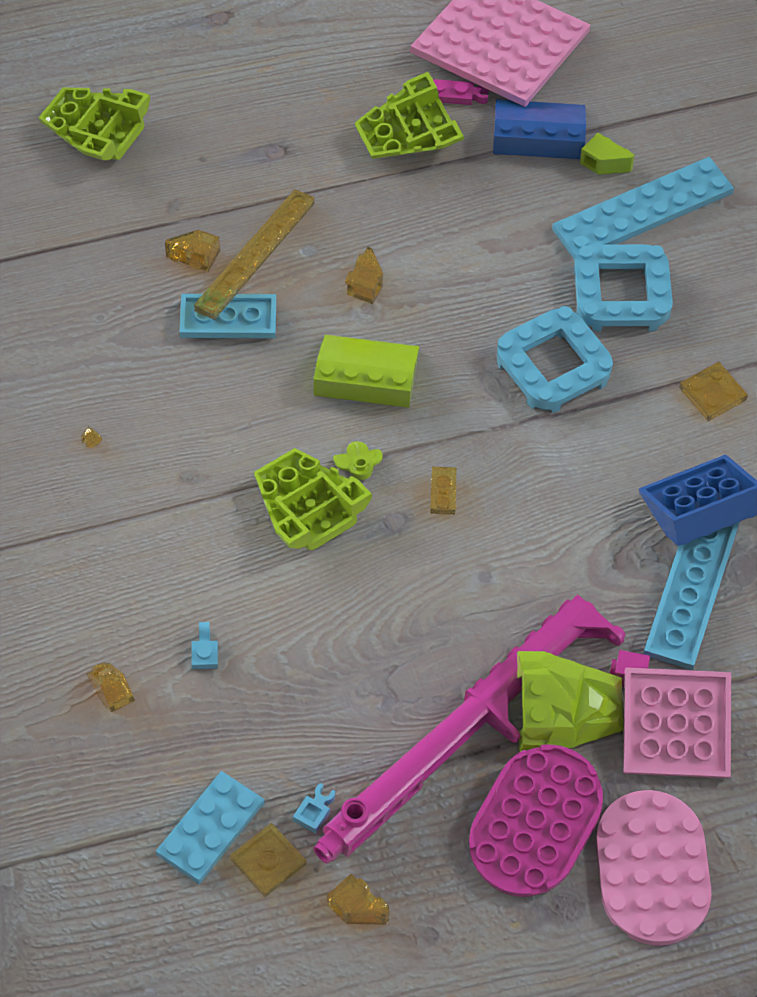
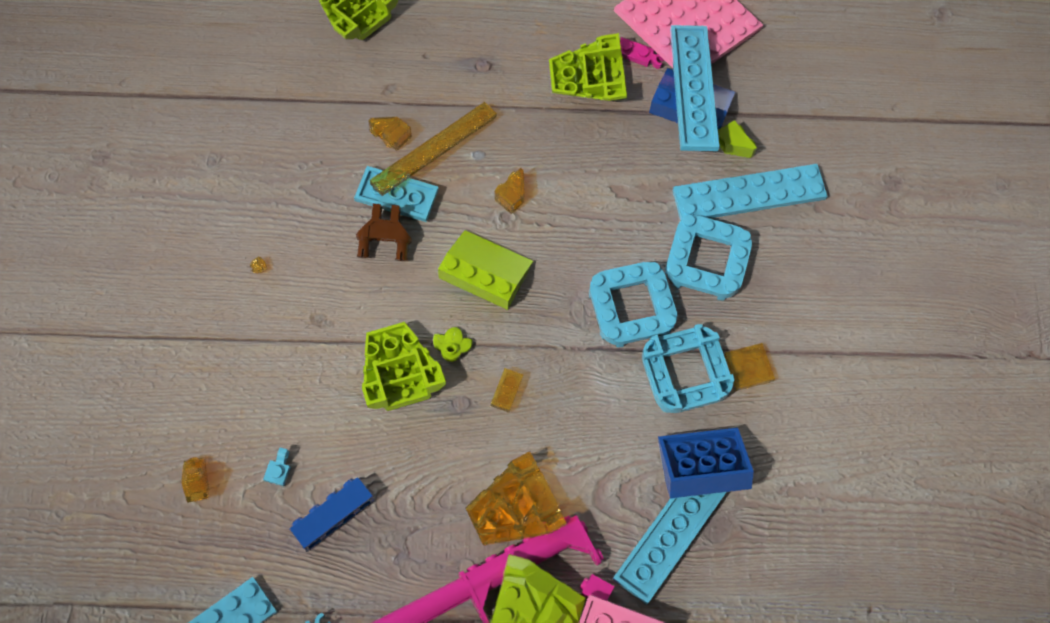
camera: 15 degrees right, 10 degrees up
(232, 358) = (384, 230): none -> reddish brown connector
(289, 677) = (331, 514): none -> blue brick
(503, 604) = (516, 505): none -> clear yellow wedge
(539, 107) = (694, 88): none -> medium azure plate
(638, 447) = (694, 397): none -> medium azure plate

